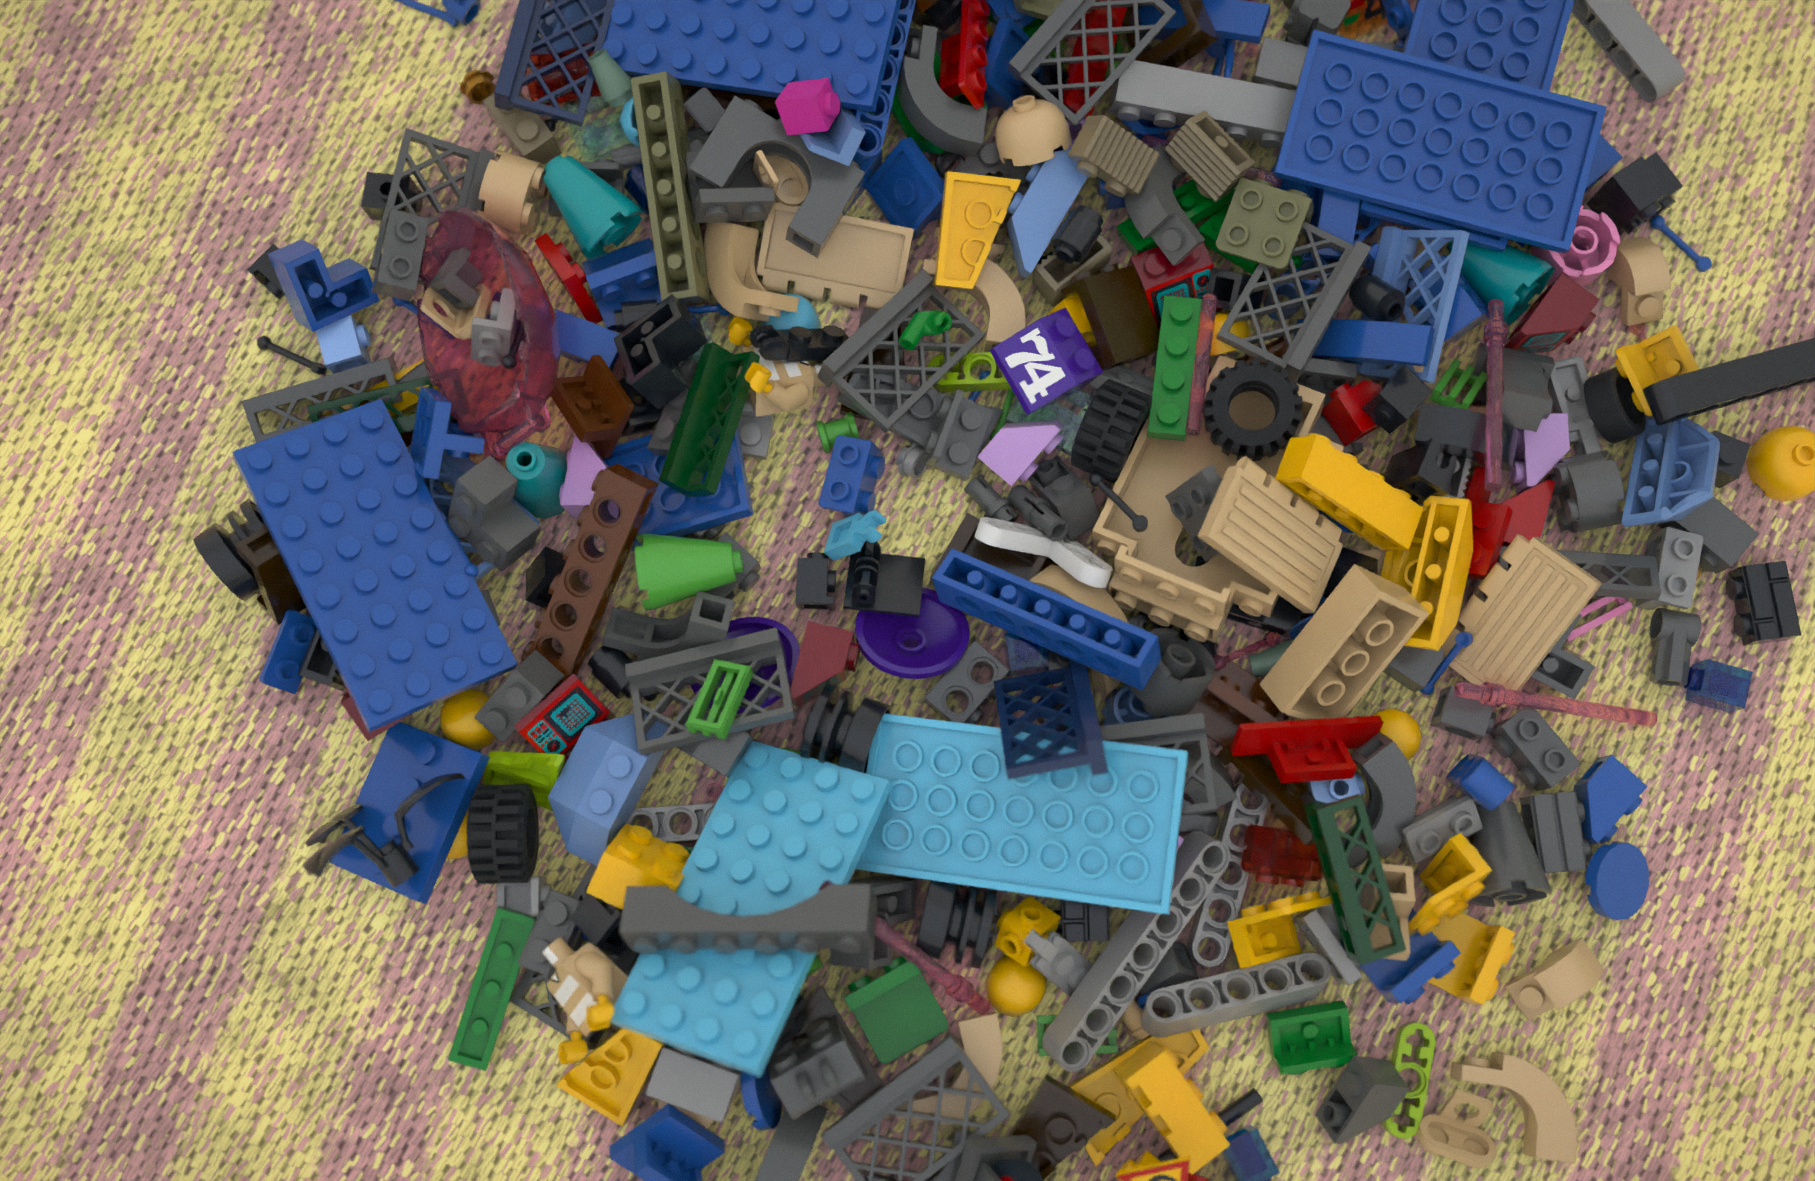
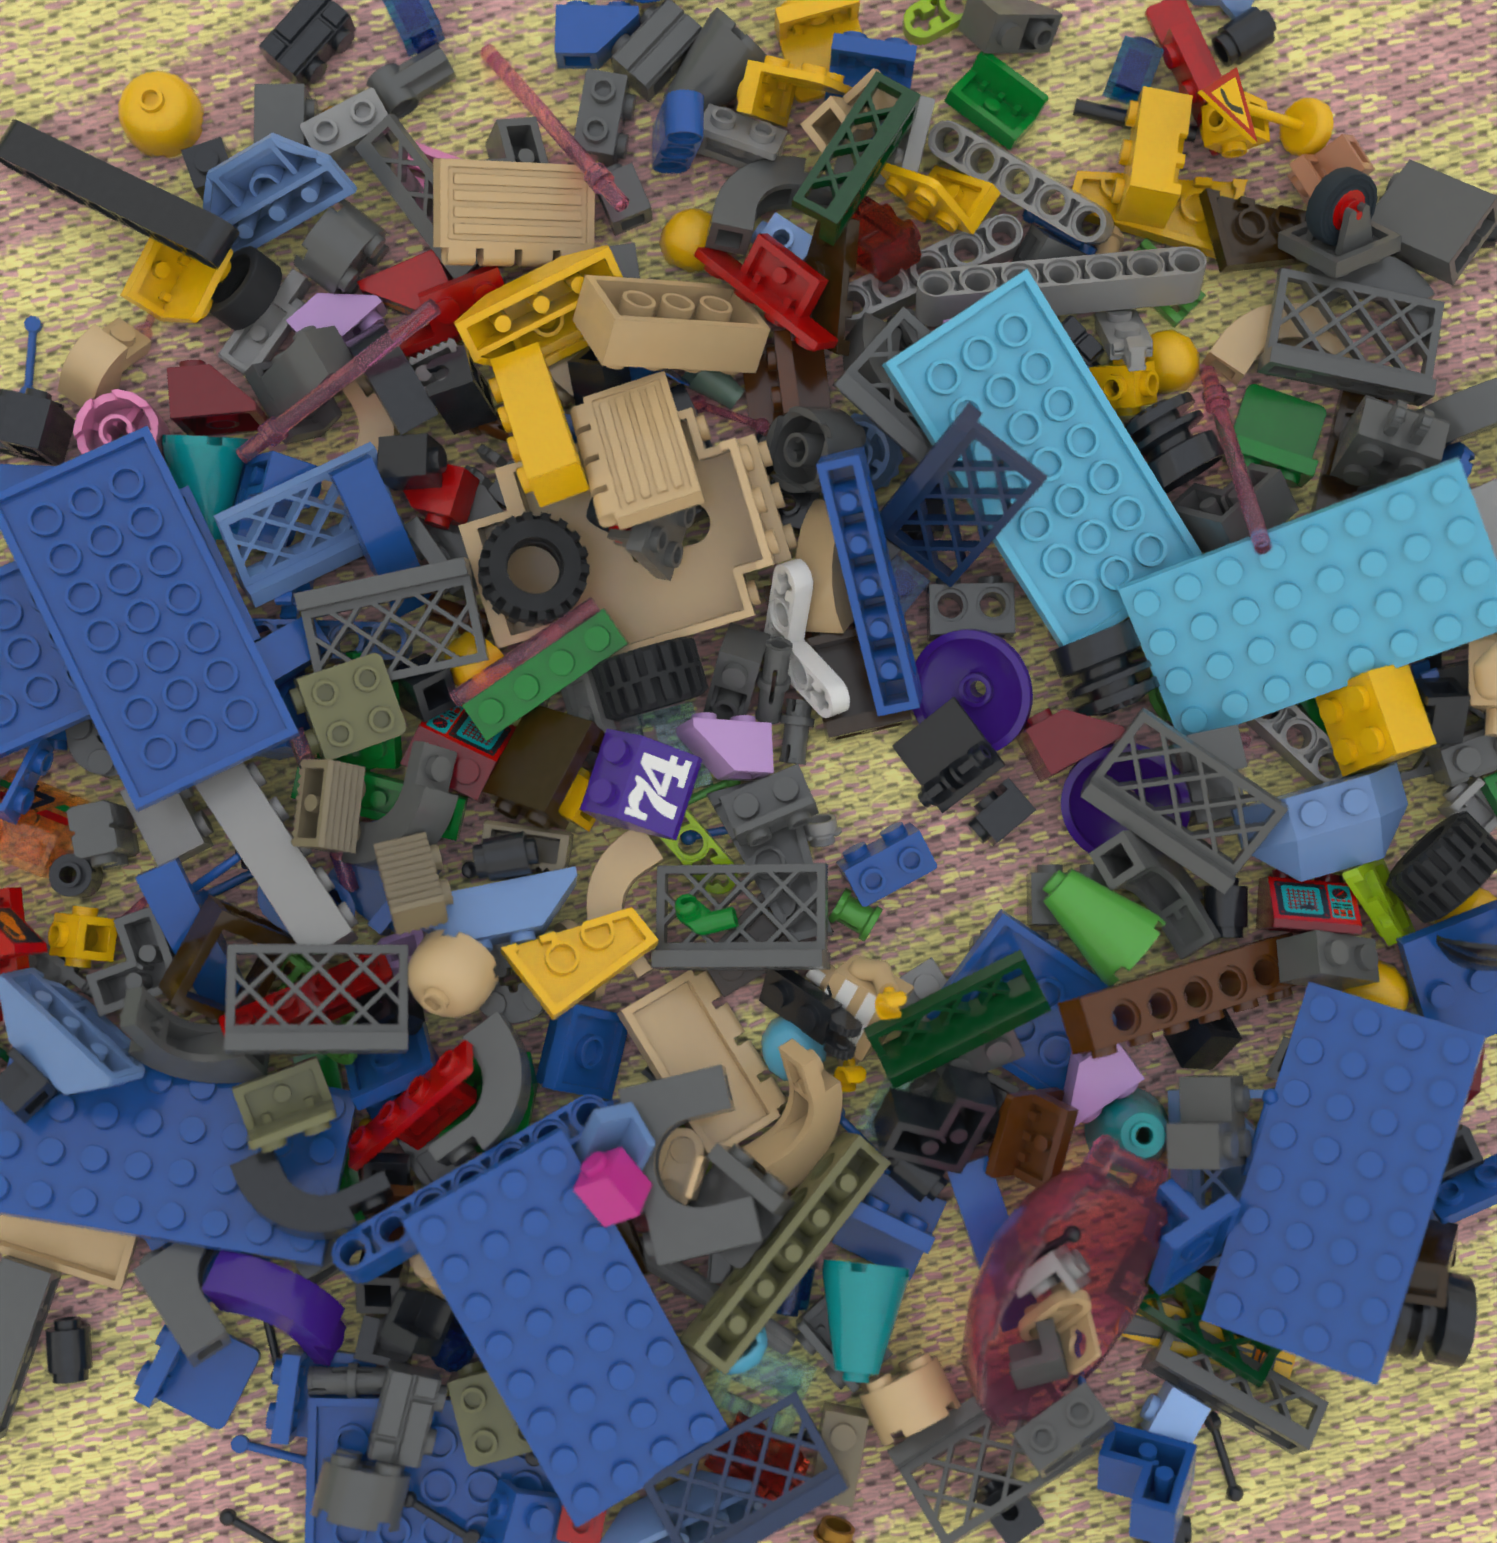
camera: 130 degrees left, 5 degrees up
(569, 275) = (936, 1273): red wing -> none
(611, 79) = (732, 1401): sand green cone -> none
(704, 109) = (681, 1295): dark grey slope -> none
(732, 704) = (1209, 754): bright green tile -> none
(833, 918) = (1287, 514): dark grey arch -> none
(850, 533) = (936, 818): medium azure plate -> none
(946, 161) = (531, 1028): black hinge -> none
(1139, 522) = (714, 580): black hinge -> none
(1377, 298) = (333, 552): black brick -> none
(1462, 640) = (567, 243): blue hinge -> none
(1464, 377) = (325, 431): bright green tile -> none

